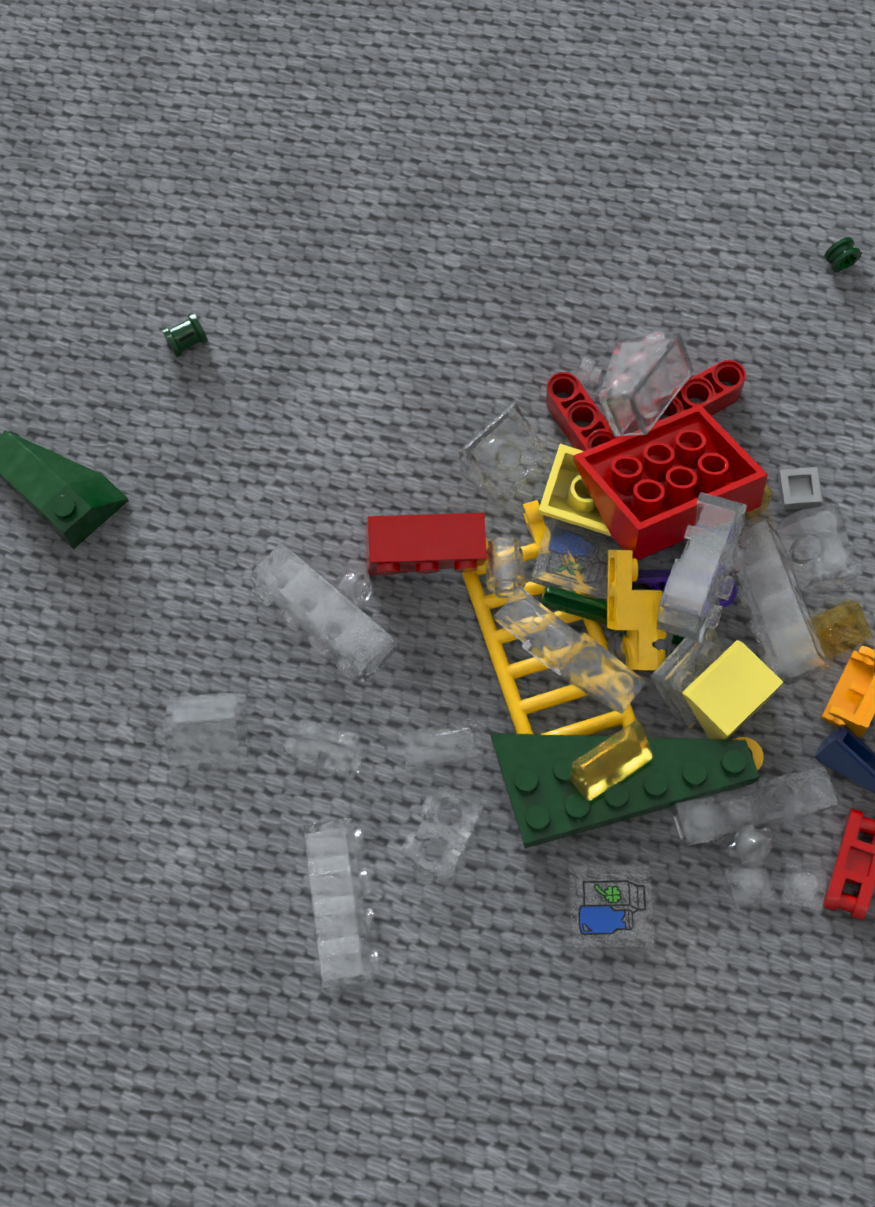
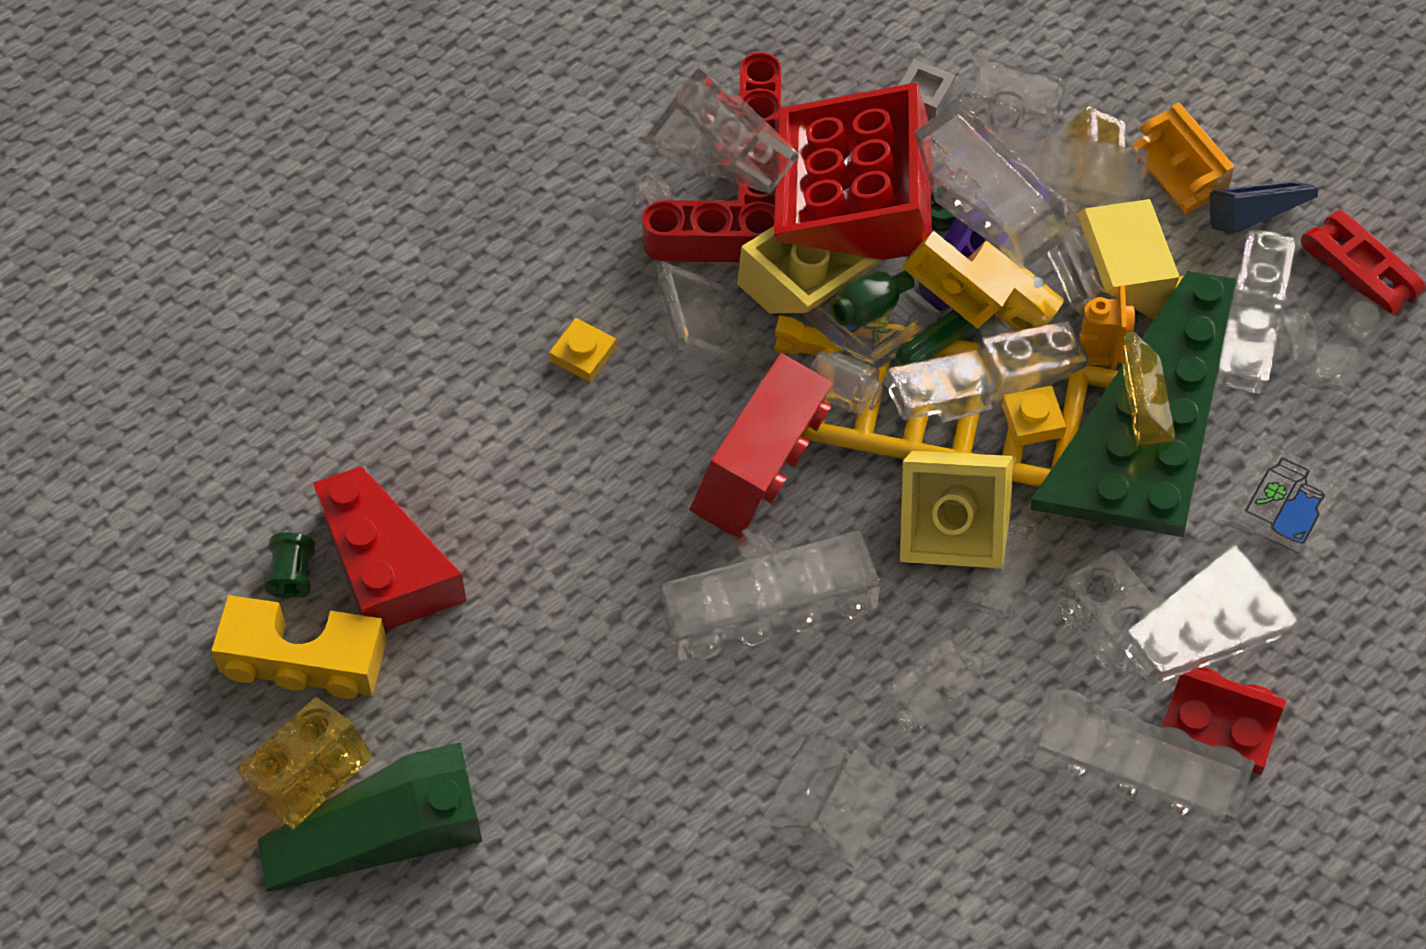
camera: 65 degrees left, 10 degrees down
(56, 422) = (304, 762): none -> clear yellow brick
(140, 399) = (340, 660): none -> yellow arch
(218, 375) = (383, 553): none -> red wedge
(405, 946) = (1226, 714): none -> red bracket
(444, 402) = (583, 350): none -> yellow plate
(461, 689) = (955, 508): none -> light yellow slope
(472, 899) = (1208, 620): none -> clear wing
(561, 701) = (1033, 416): none -> yellow plate
(574, 544) = (869, 297): none -> dark green plant
(659, 712) = (1104, 328): none -> light orange hinge

